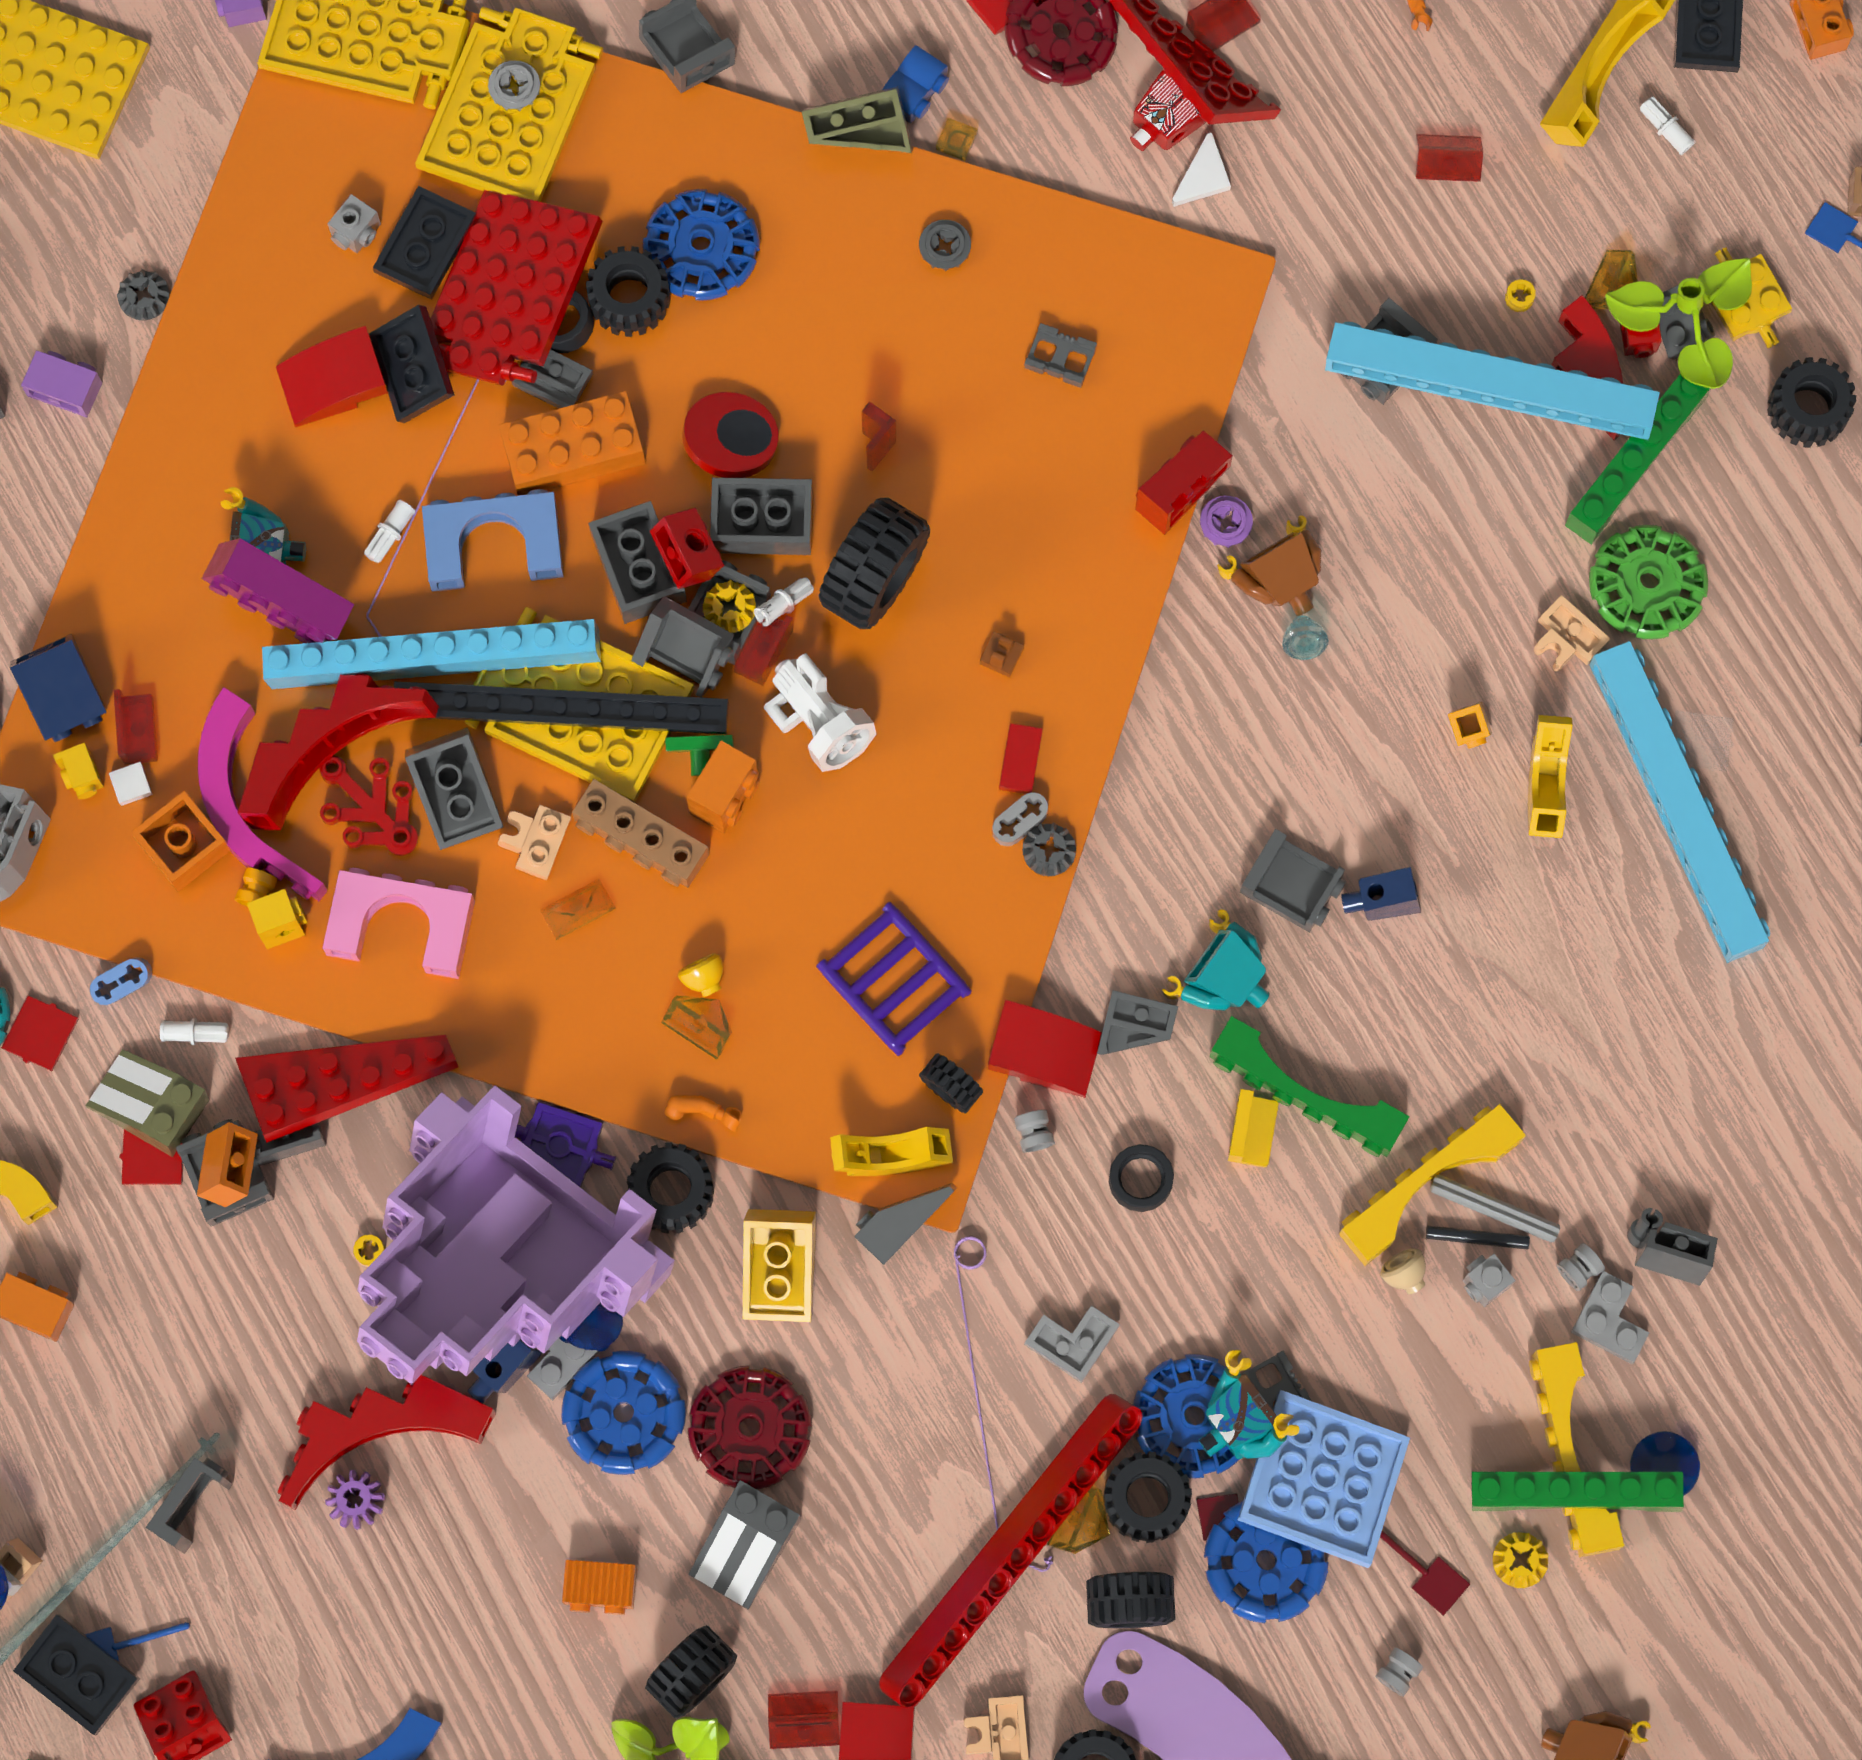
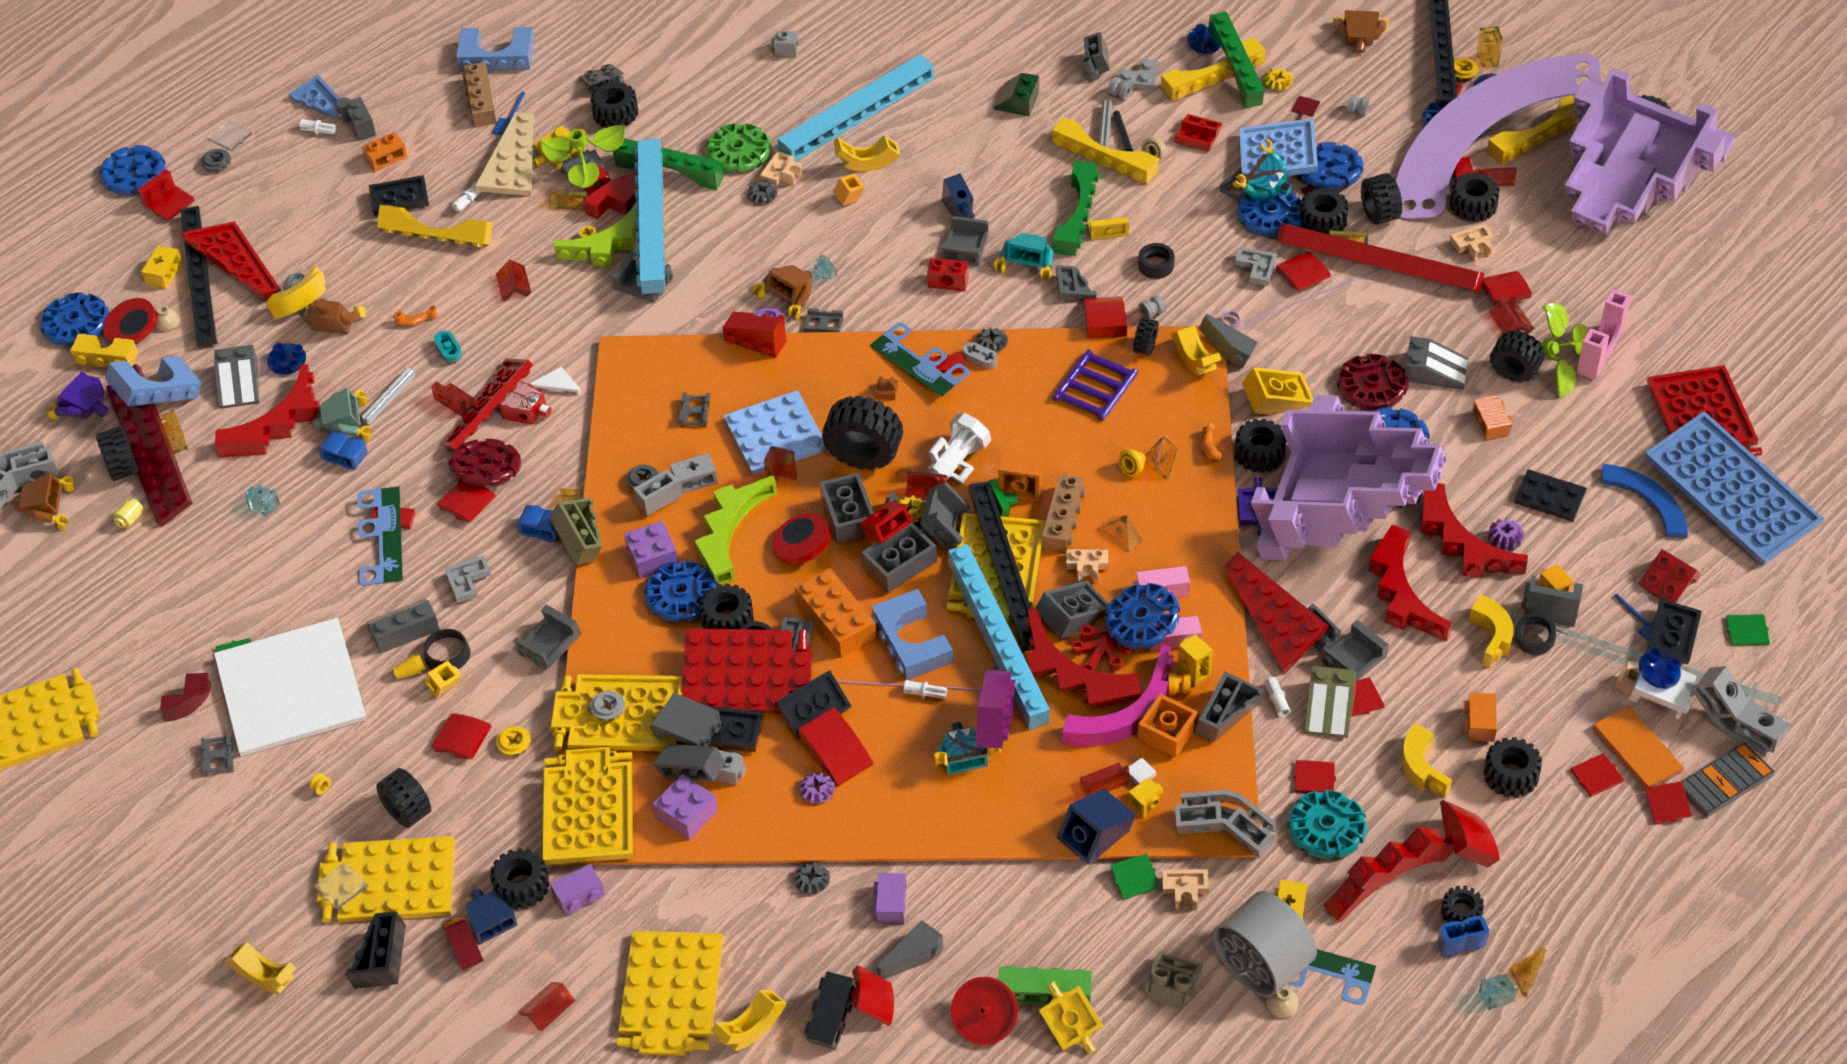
camera: 105 degrees left, 25 degrees down
(124, 988) = (1264, 739): medium blue beam -> none
(135, 1437) = (1535, 618): none -> black tyre
(182, 937) = (1227, 706): none -> dark grey wedge
(191, 1412) = (1498, 623): none -> yellow arch
(227, 1164) = (1353, 635): orange brick -> none
(235, 1532) = (1556, 579): none -> light orange brick
(278, 1286) = (1394, 587): none -> red arch
(289, 346) = (808, 790): none -> medium lavender gear
(306, 150) = (685, 807): none -> medium lavender brick
(360, 1245) = (1362, 580): yellow bush -> none
(366, 167) = (694, 762): none -> dark grey brick
(378, 886) = (1145, 625): none -> blue plate
(414, 1612) = (1550, 495): none -> black plate
(433, 178) = (686, 721): none -> dark grey panel
(761, 309) = (721, 524): none -> lime arch
(783, 601) = (895, 484): white axle -> none
(790, 217) = (650, 548): none -> medium lavender brick
(894, 250) = (657, 492): none -> light grey brick
(919, 299) = (695, 473): none -> light grey brick
(971, 461) = (777, 423): none -> light blue plate
(1031, 711) = (918, 367): none -> piece
(1032, 1413) = (1303, 271): none -> red slope
(1201, 611) = (824, 318): none -> dark grey piece
(1221, 826) = (947, 274): none -> red brick
(1332, 28) = (448, 346): none -> teal plate
(1431, 1366) = (1198, 132): none -> red slope
(1475, 306) = (601, 246): none -> lime arch
(1487, 1279) = (1144, 117): light grey brick -> none
(1520, 605) = (760, 197): none -> dark grey gear
(1623, 1085) = (1018, 94): none -> dark green slope
(1723, 209) = (511, 162): none -> tan wing

